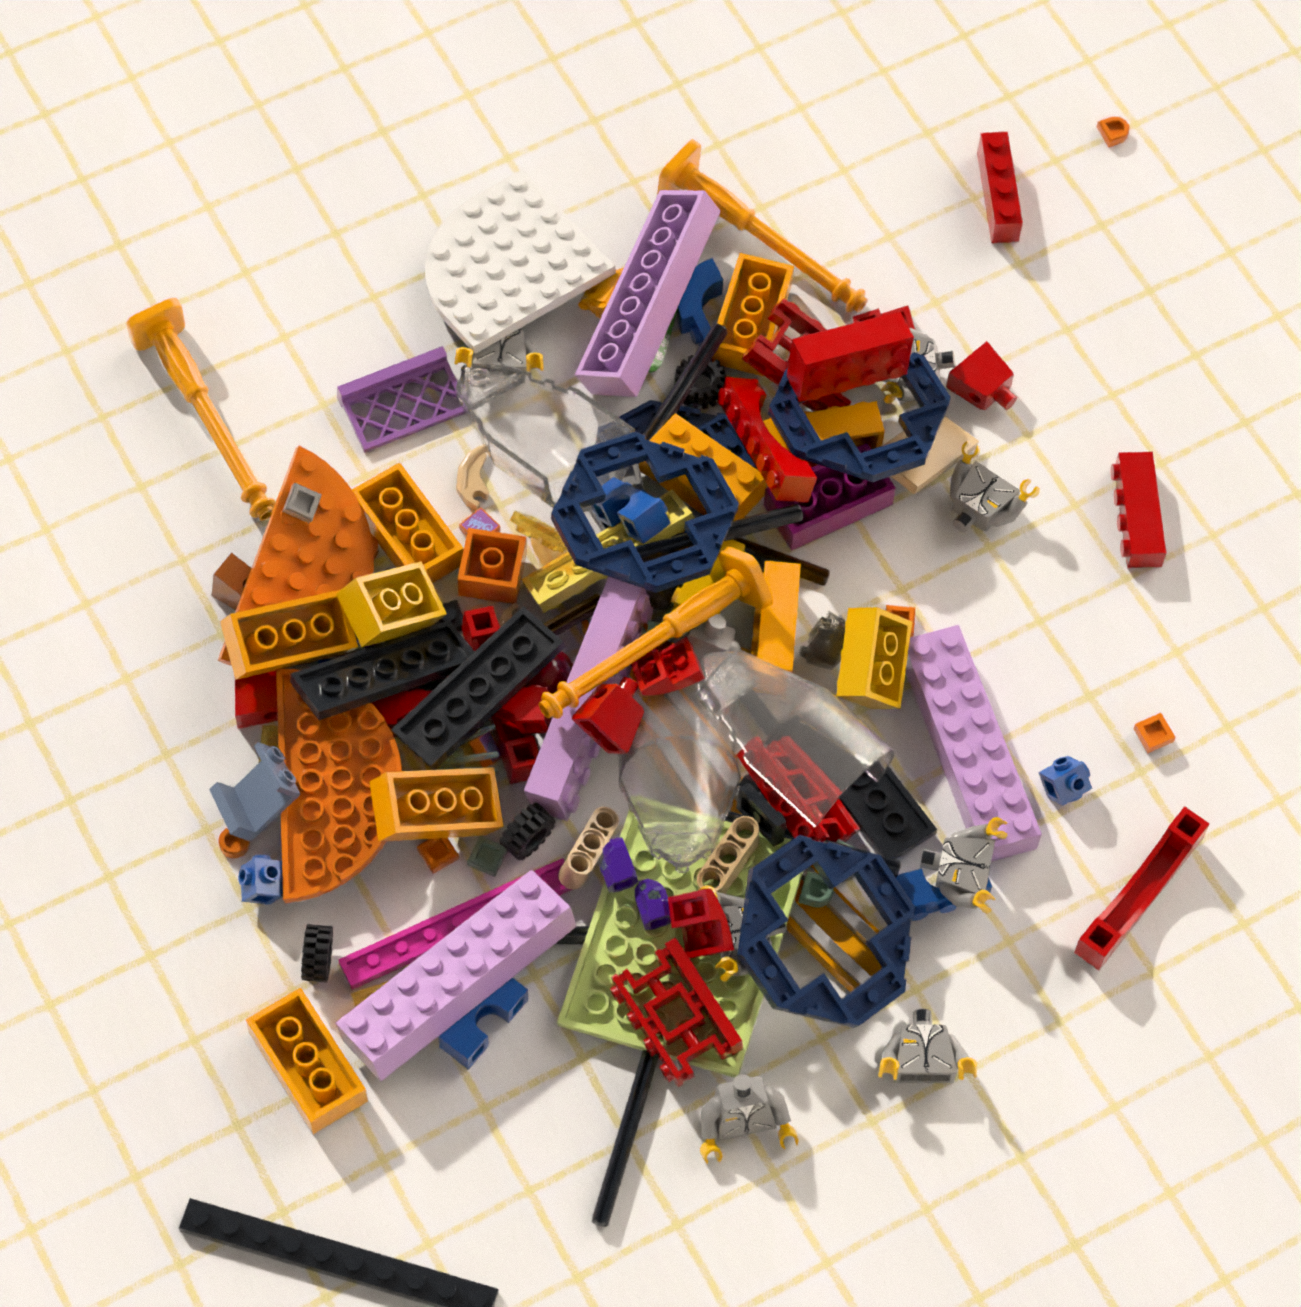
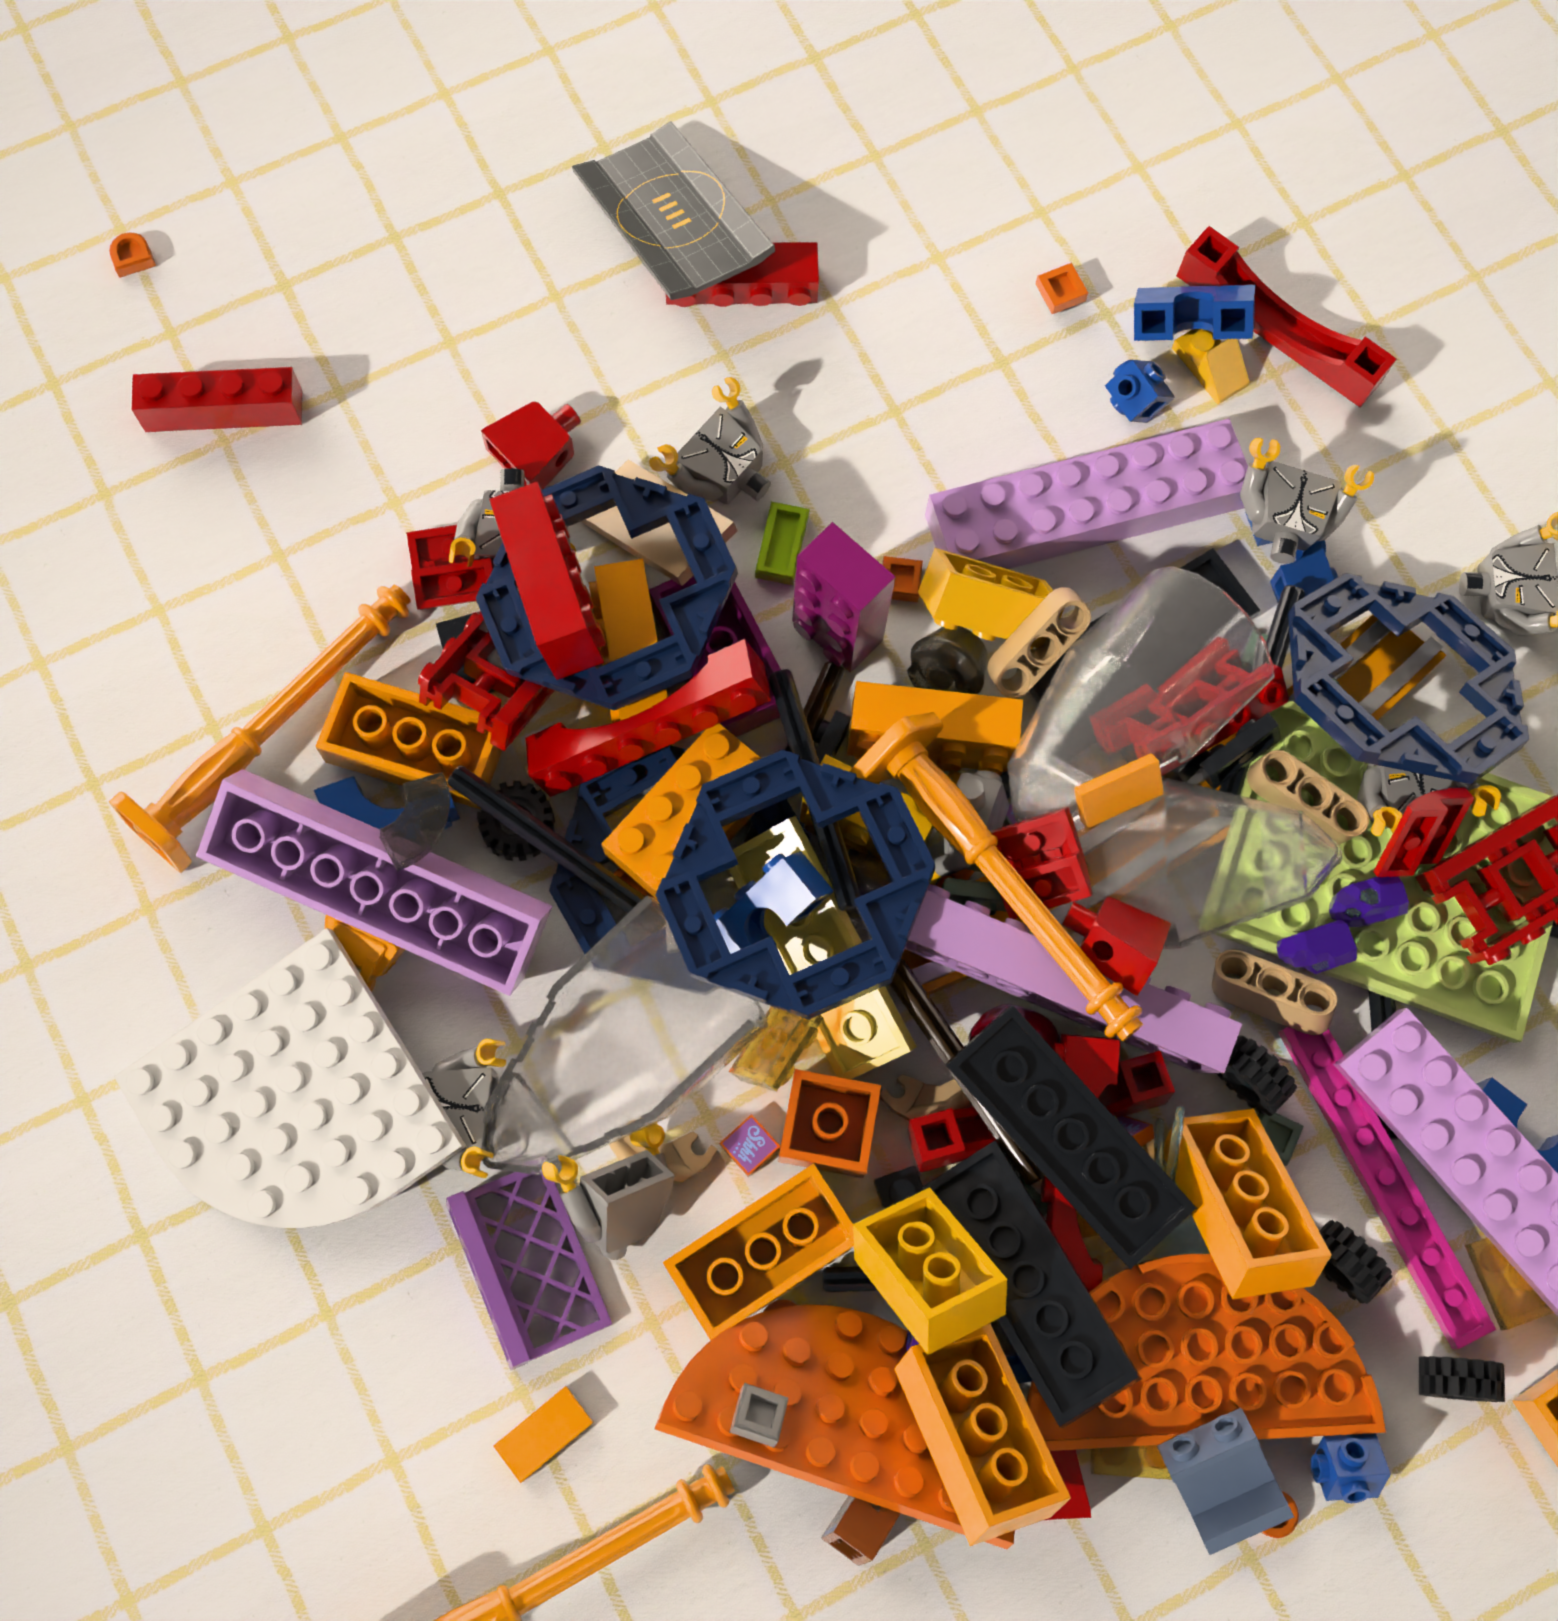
camera: 90 degrees left, 10 degrees up
(297, 415) = (543, 1434): none -> light orange tile
(397, 885) = (1353, 1263): none -> black tyre
(439, 439) = (618, 1200): none -> light grey torso
(685, 307) = (420, 823): none -> clear smoke tile
(717, 709) = (1119, 790): none -> light orange tile
(835, 677) = (1042, 622): none -> tan beam
(861, 552) = (841, 597): none -> magenta brick
(922, 543) = (782, 543): none -> lime tile
(1102, 842) = (1213, 363): none -> yellow slope
(1137, 832) = (1219, 309): none -> blue arch
(1176, 452) = (675, 213): none -> hinge

